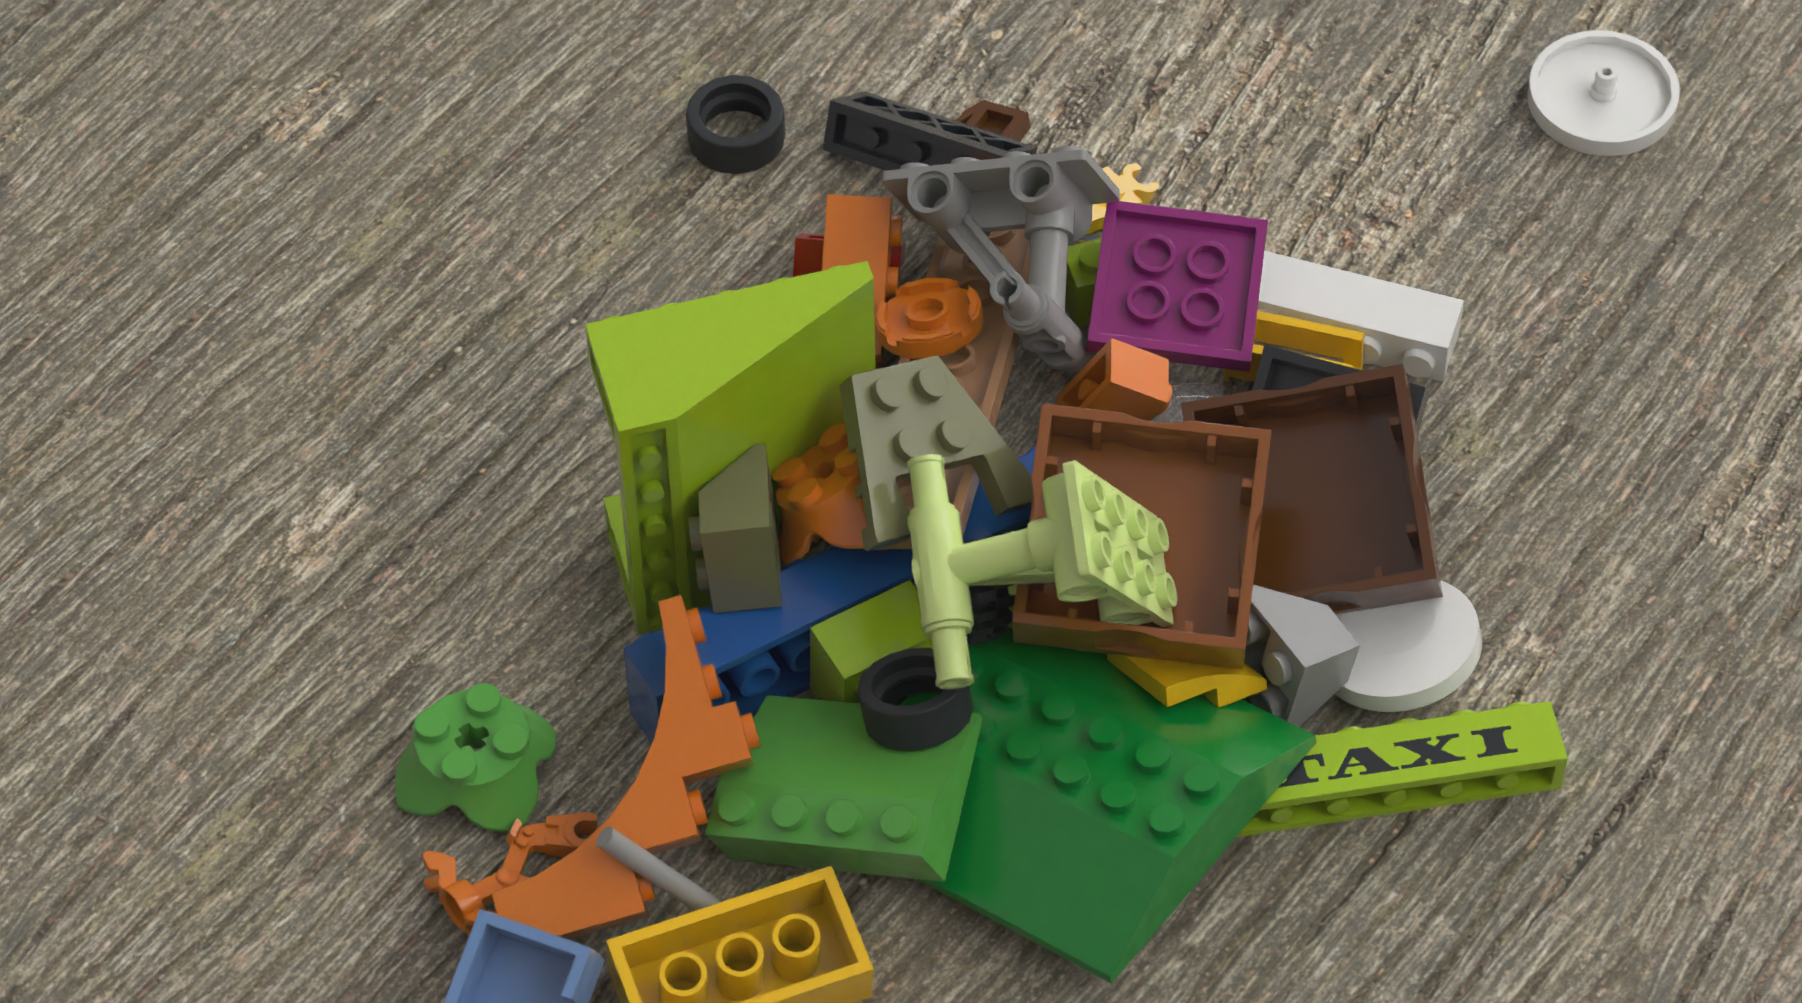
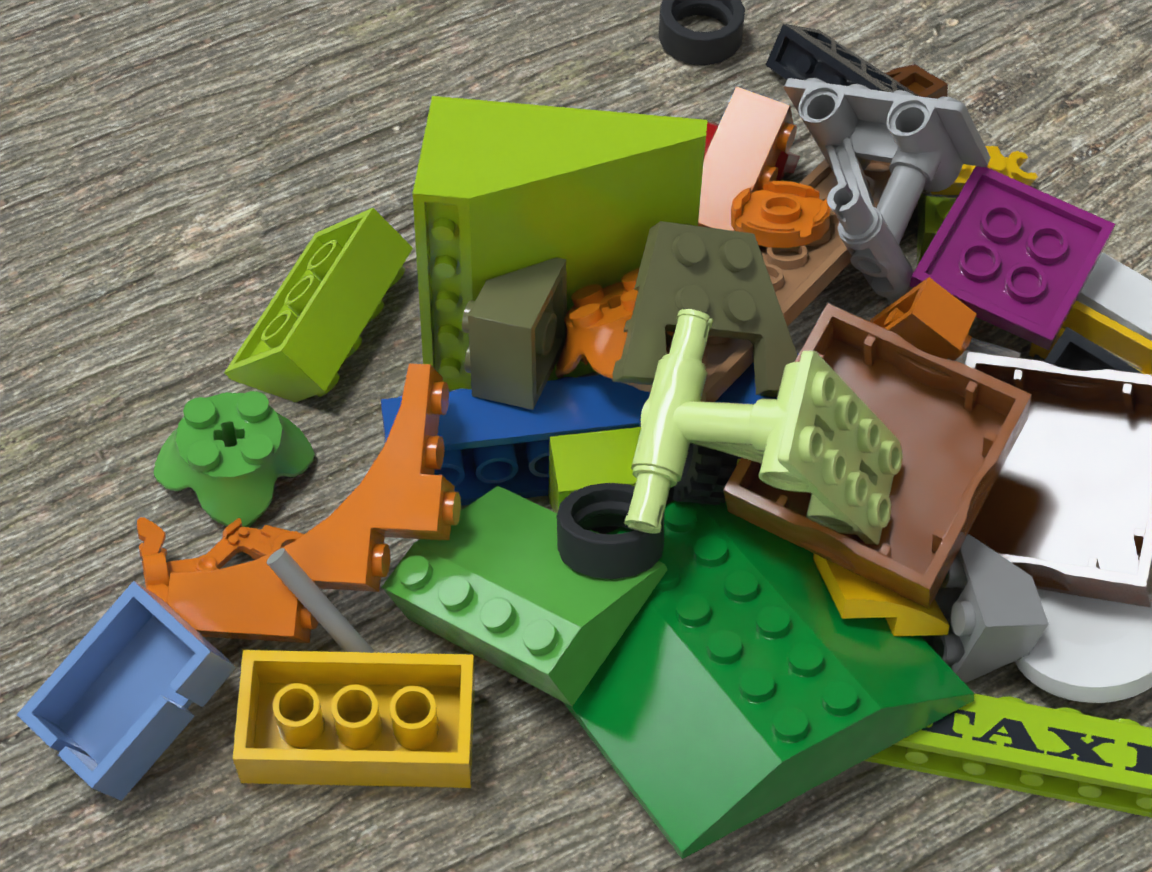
camera: 20 degrees right, 0 degrees up
(487, 574) = (322, 309): none -> lime slope

